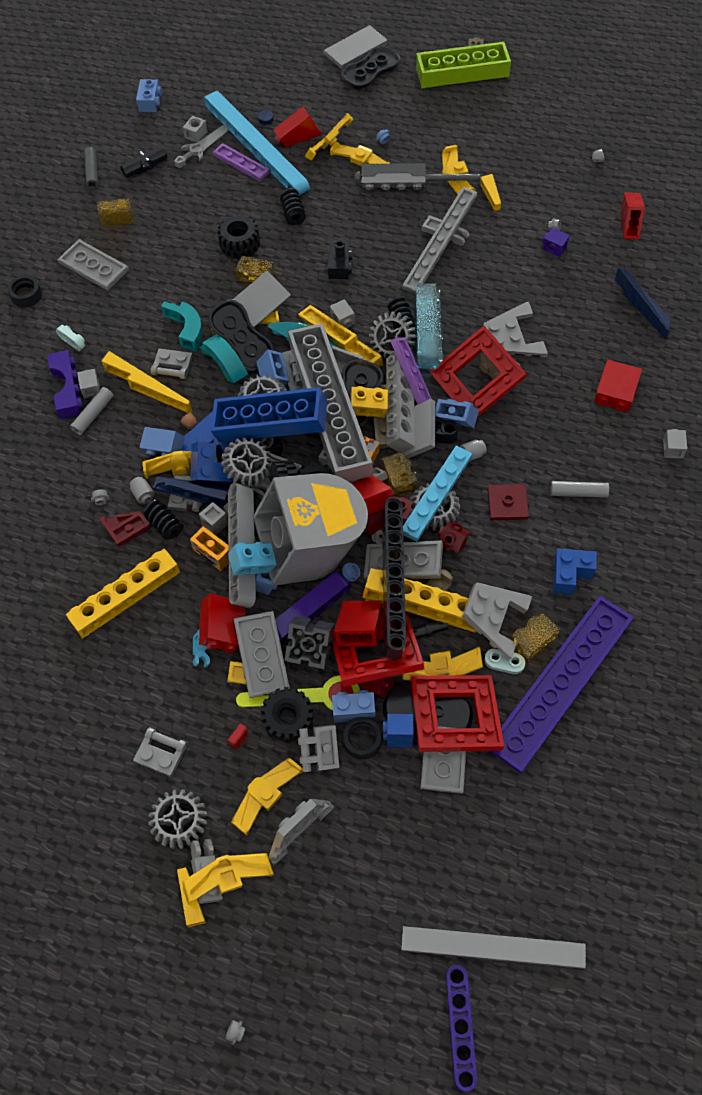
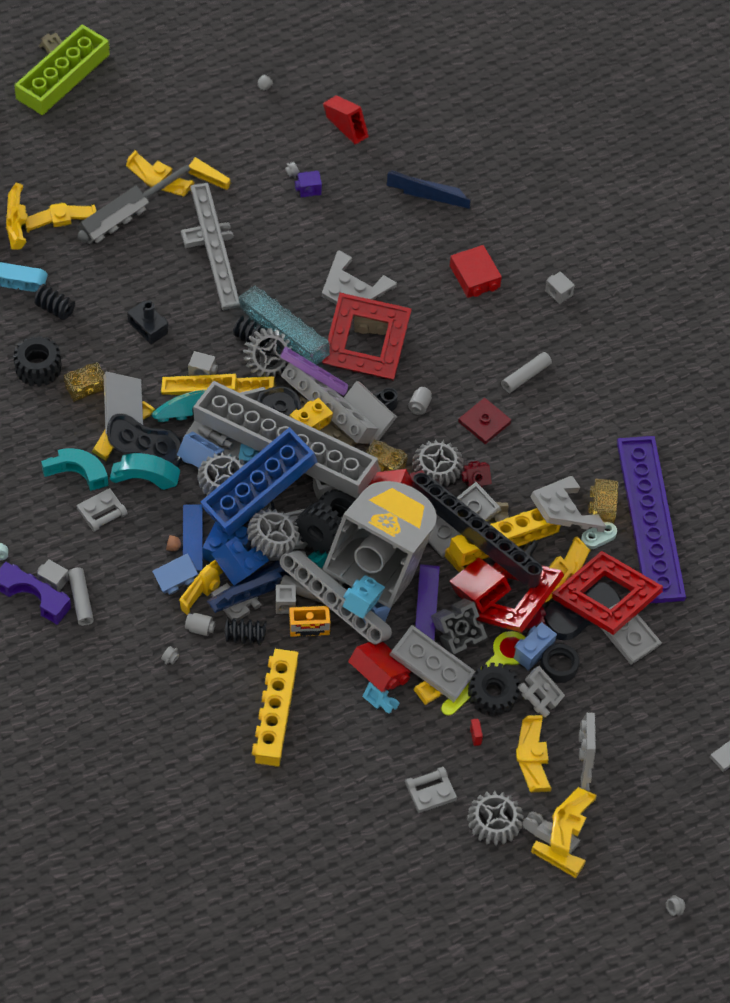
camera: 50 degrees left, 5 degrees down
(125, 526) = (217, 661): dark red wing -> none
(144, 383) = (100, 541): yellow slope -> none
(351, 572) = (429, 558): medium blue plate -> none
(383, 137) = (61, 184): medium blue plate -> none
(398, 730) = (584, 634): blue brick -> none
(436, 493) = (433, 445): medium azure plate -> none
(461, 413) = (386, 377): medium blue brick -> none
(571, 565) = (578, 434): blue brick -> none

